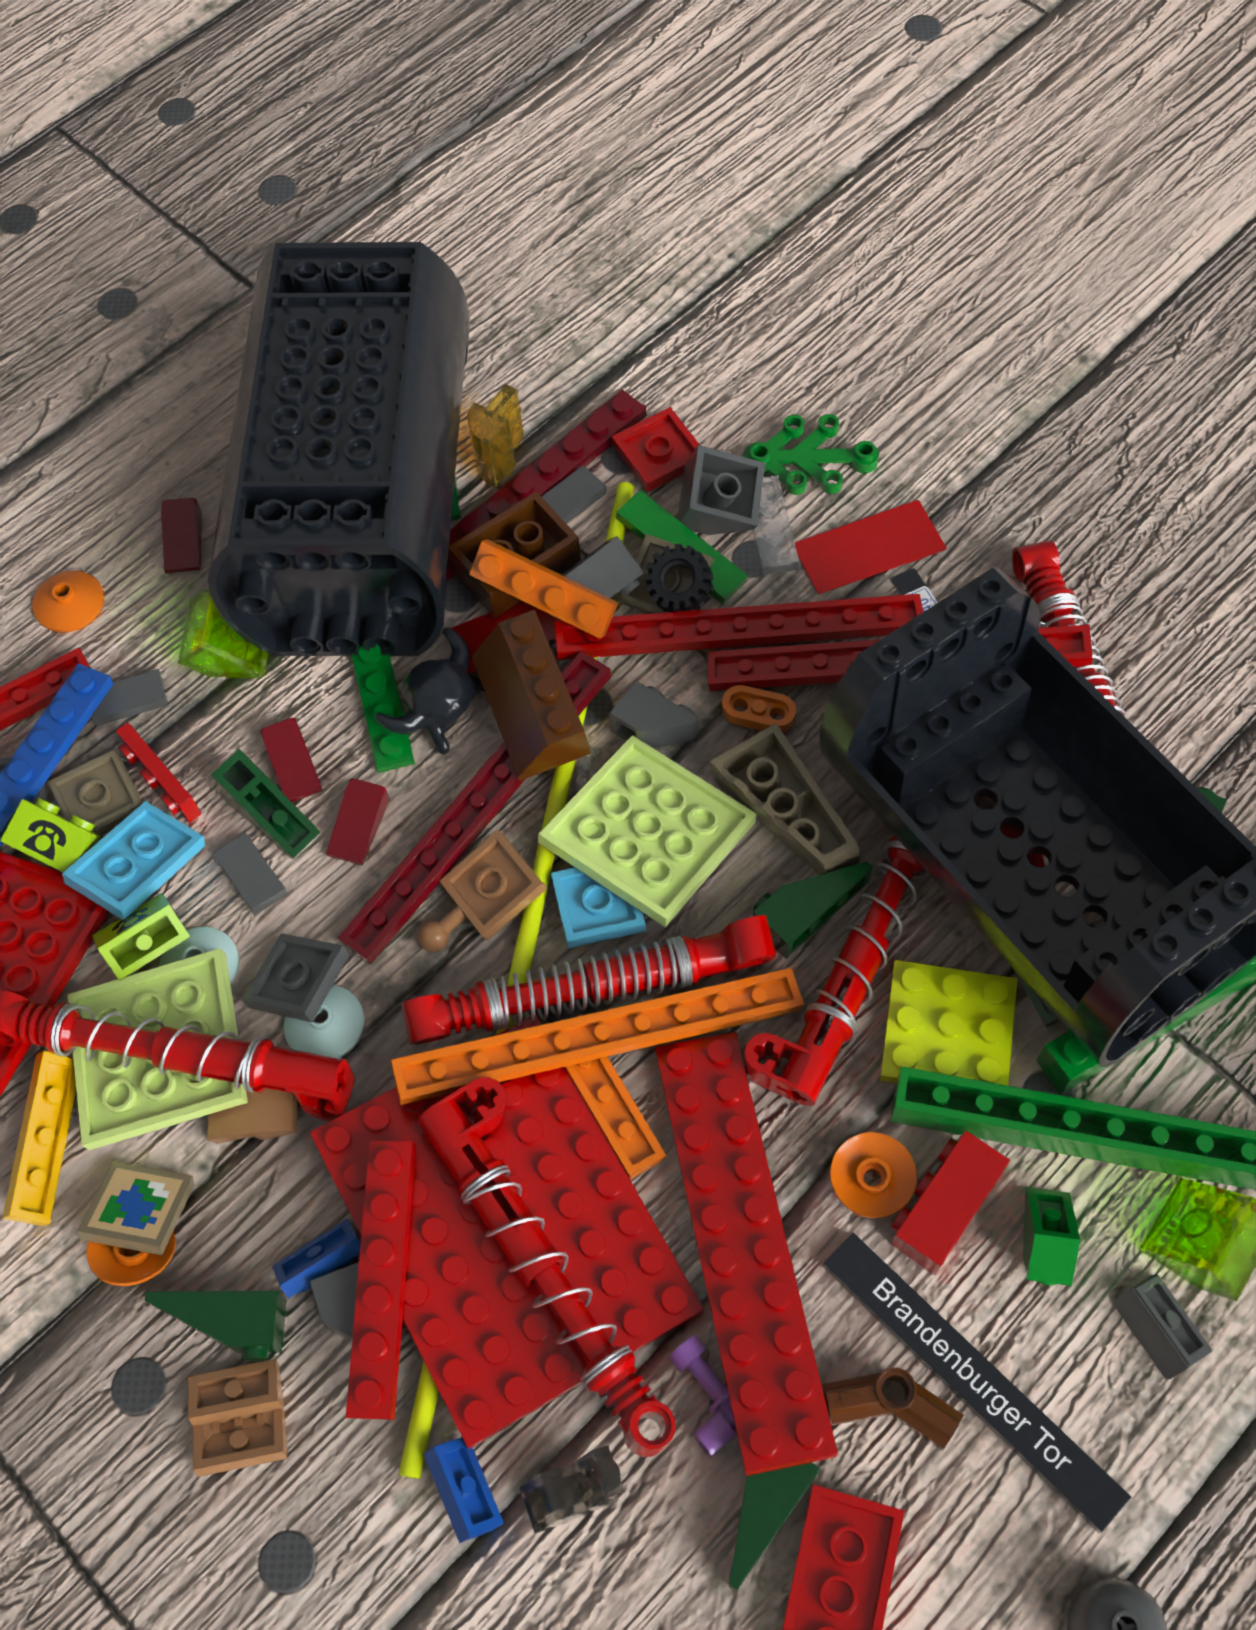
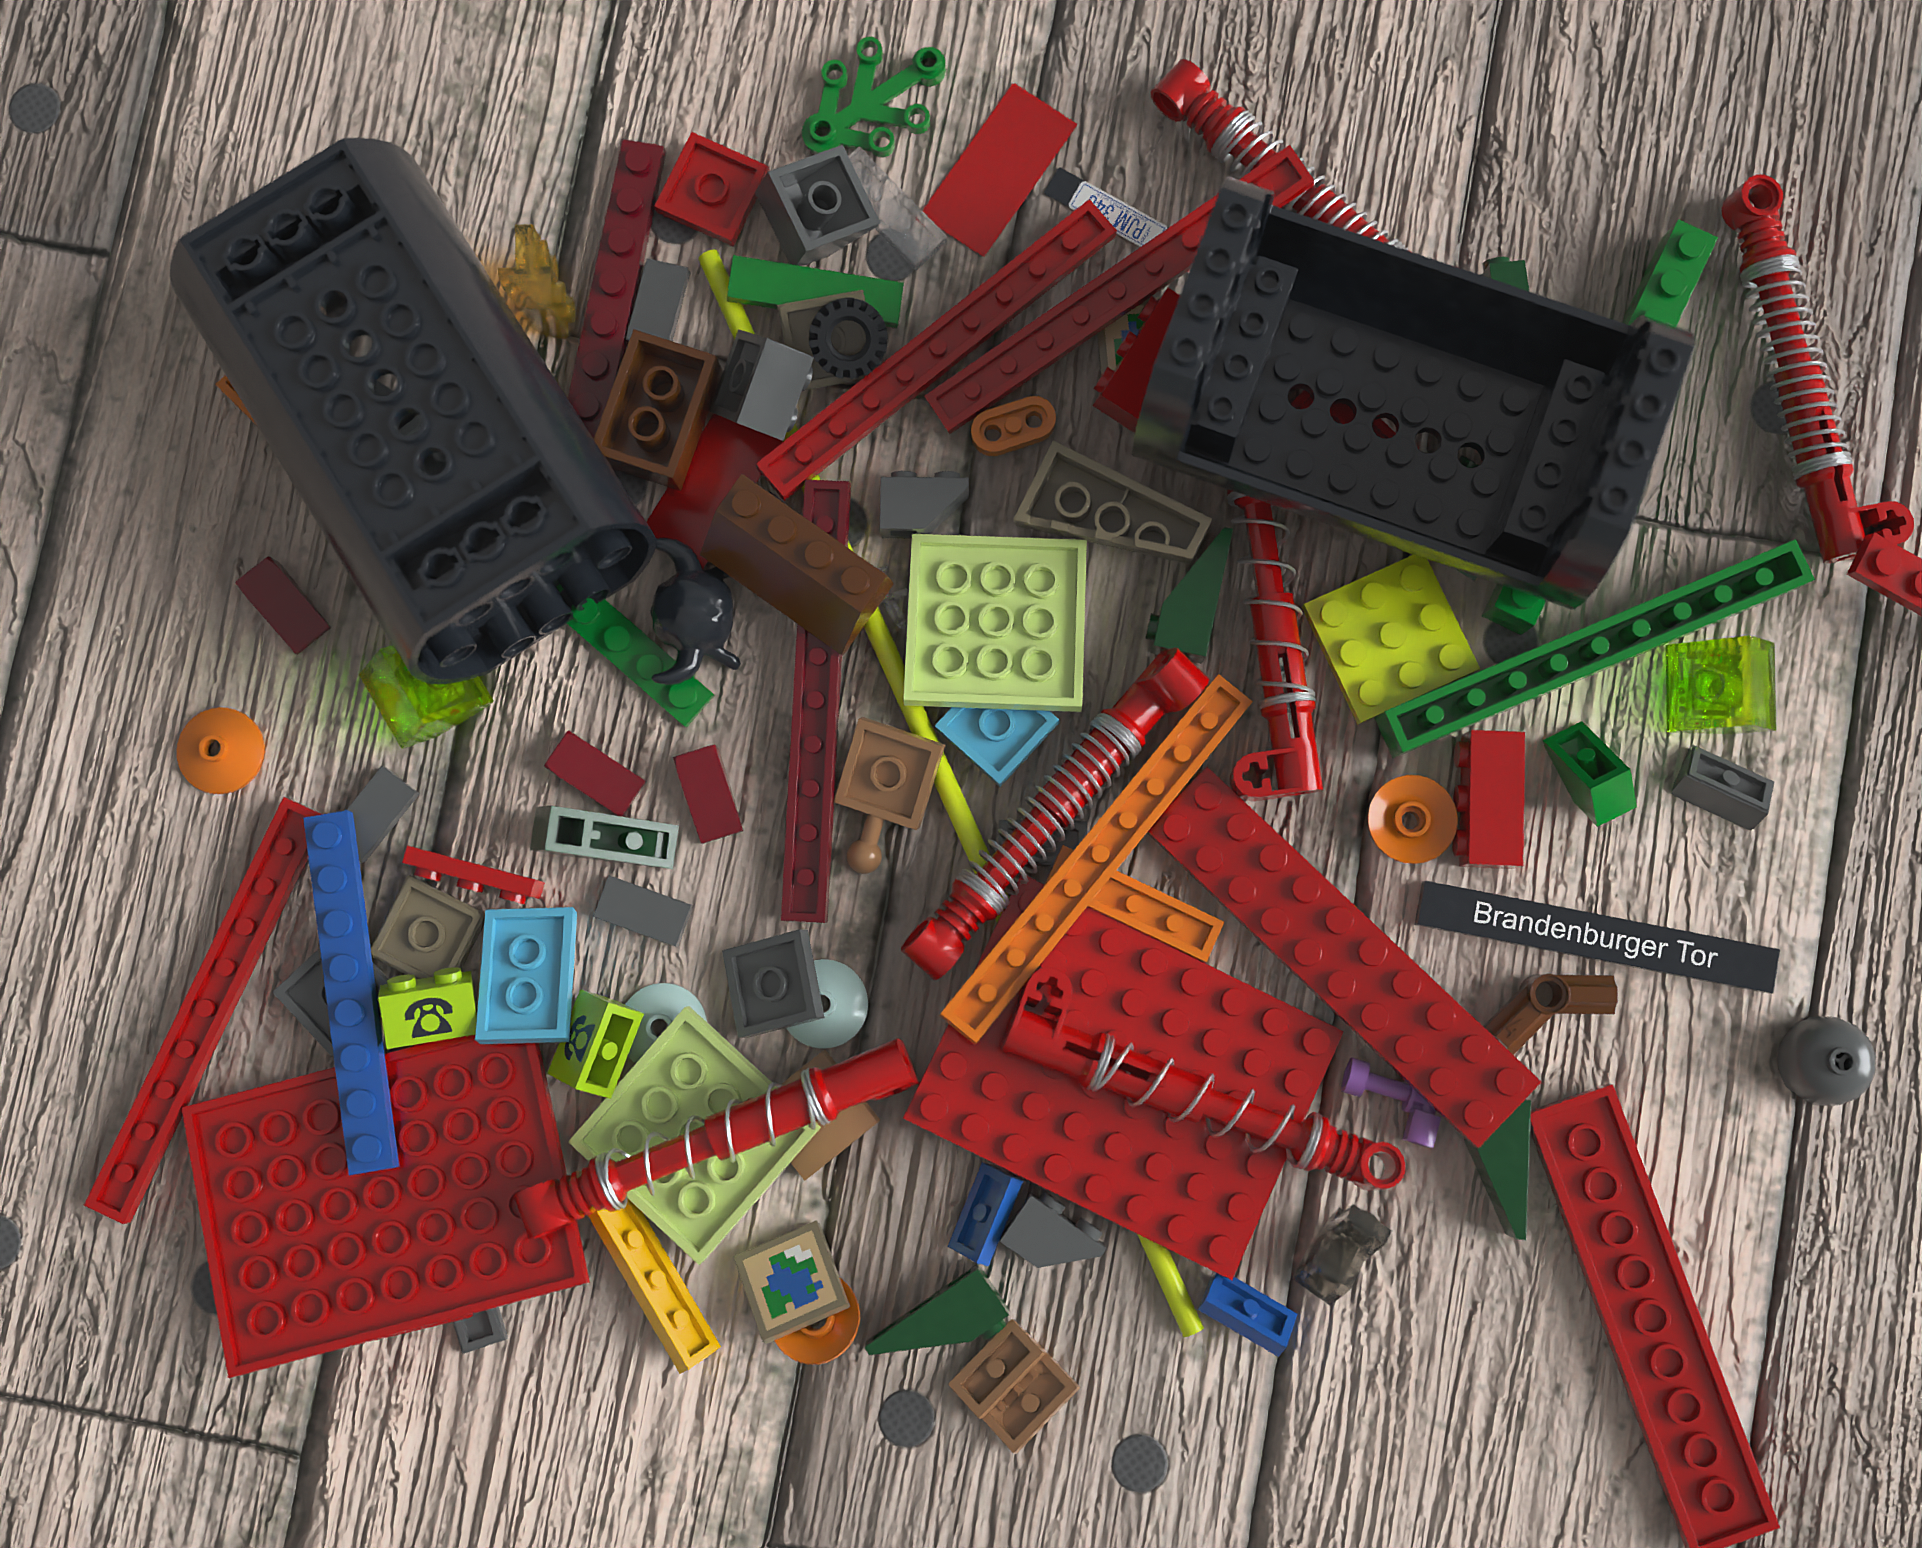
camera: 30 degrees left, 20 degrees up
(381, 1281) = (1064, 1199): red plate -> none
(543, 588) = (726, 440): orange plate -> none

